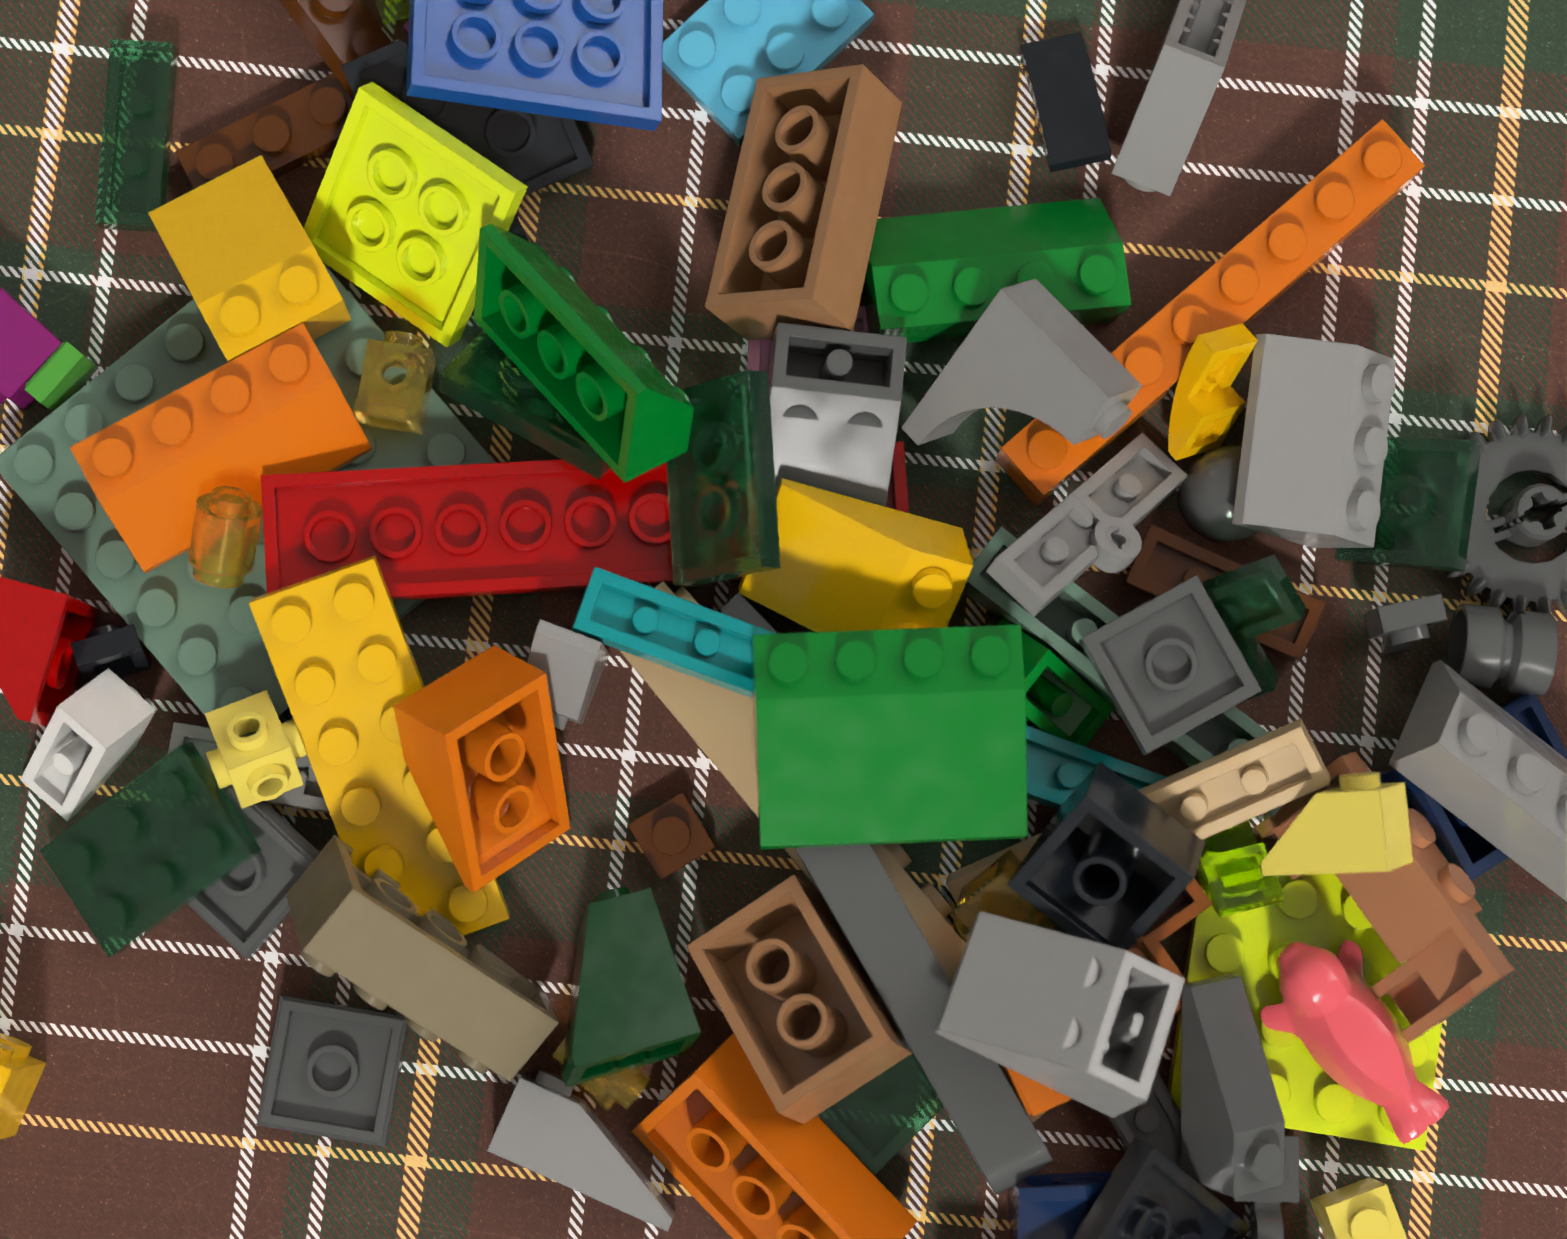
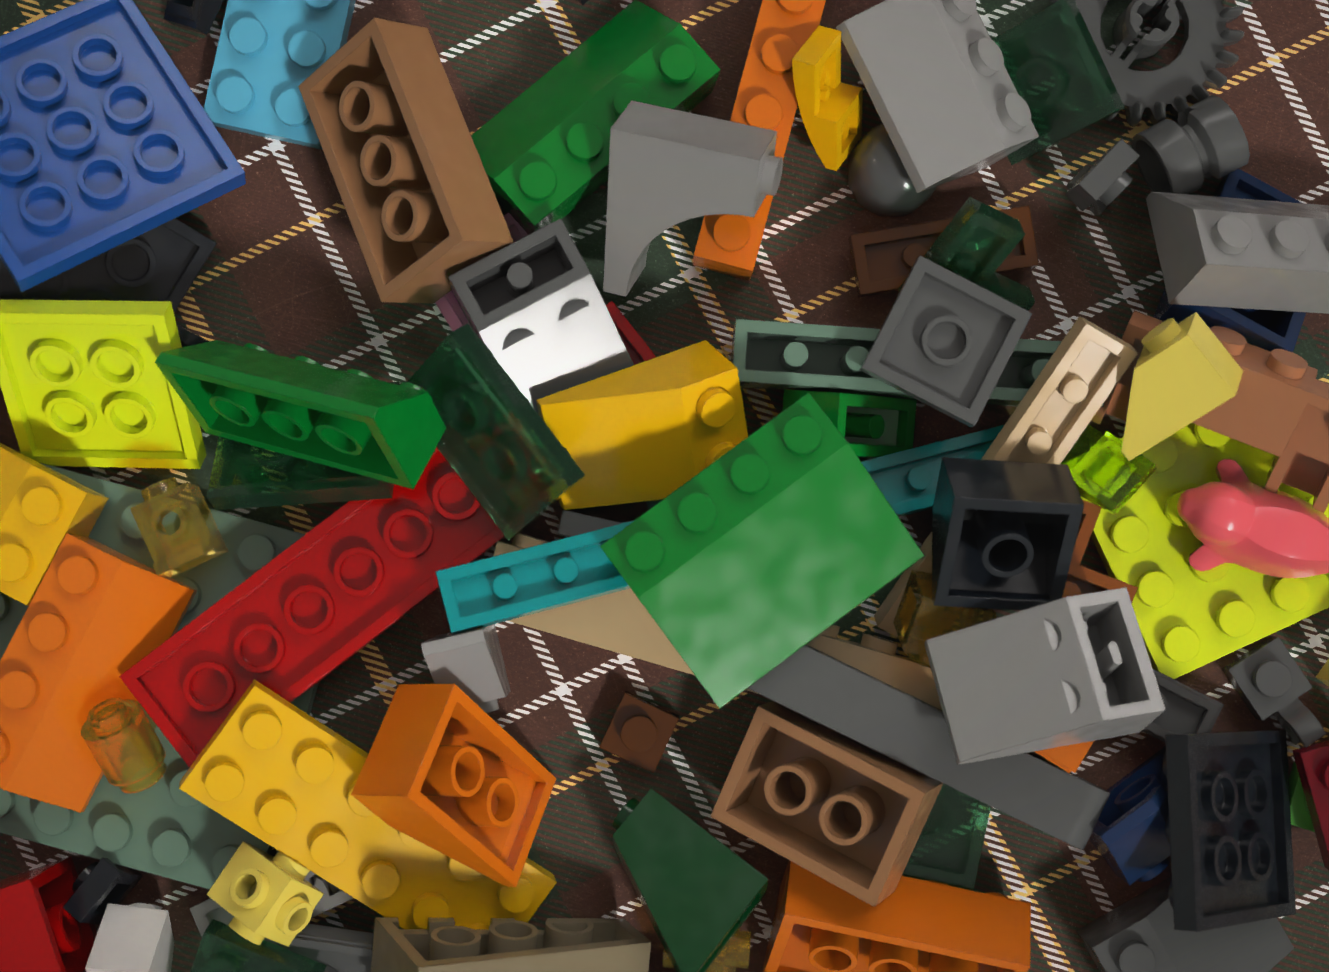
camera: 30 degrees left, 5 degrees up
(1089, 526) = (805, 273): light grey hinge -> none
(1227, 1093) = (1212, 649): dark grey slope -> none

